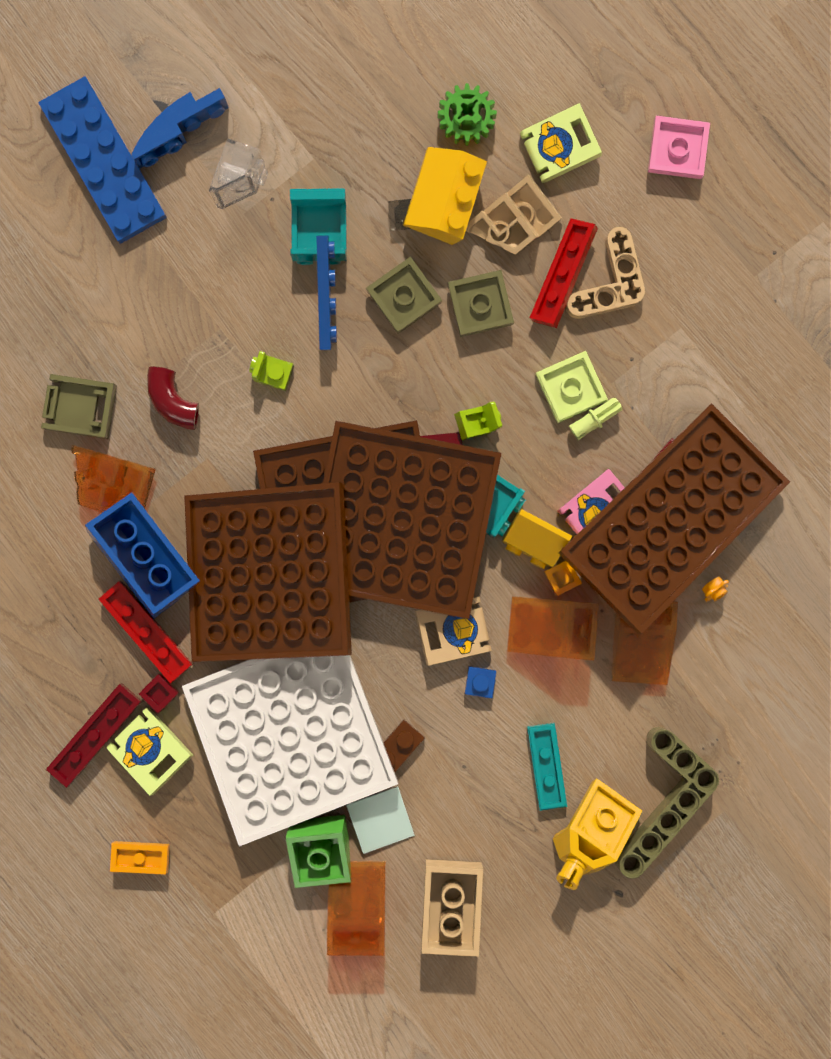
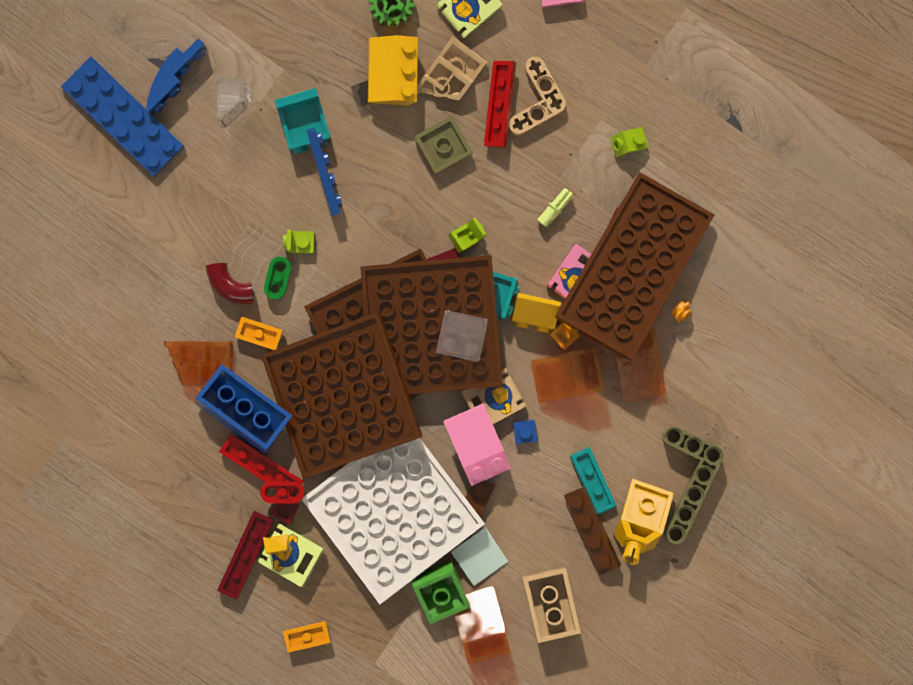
camera: 20 degrees left, 0 degrees up
(75, 406) = (157, 312): olive container -> none
(134, 734) = (277, 544): none -> yellow slope
(160, 672) = (282, 492): none -> red plate
(189, 468) = (258, 333): none -> light orange plate
(230, 407) = (277, 278): none -> green plate
(404, 295) = (383, 155): olive plate -> none
(416, 682) = (477, 444): none -> bright pink slope
(436, 542) = (462, 336): none -> clear slope
(529, 828) = (592, 530): none -> reddish brown plate
(571, 387) = (530, 189): yellowish green tile -> none
(708, 363) = (629, 141): none -> lime bracket

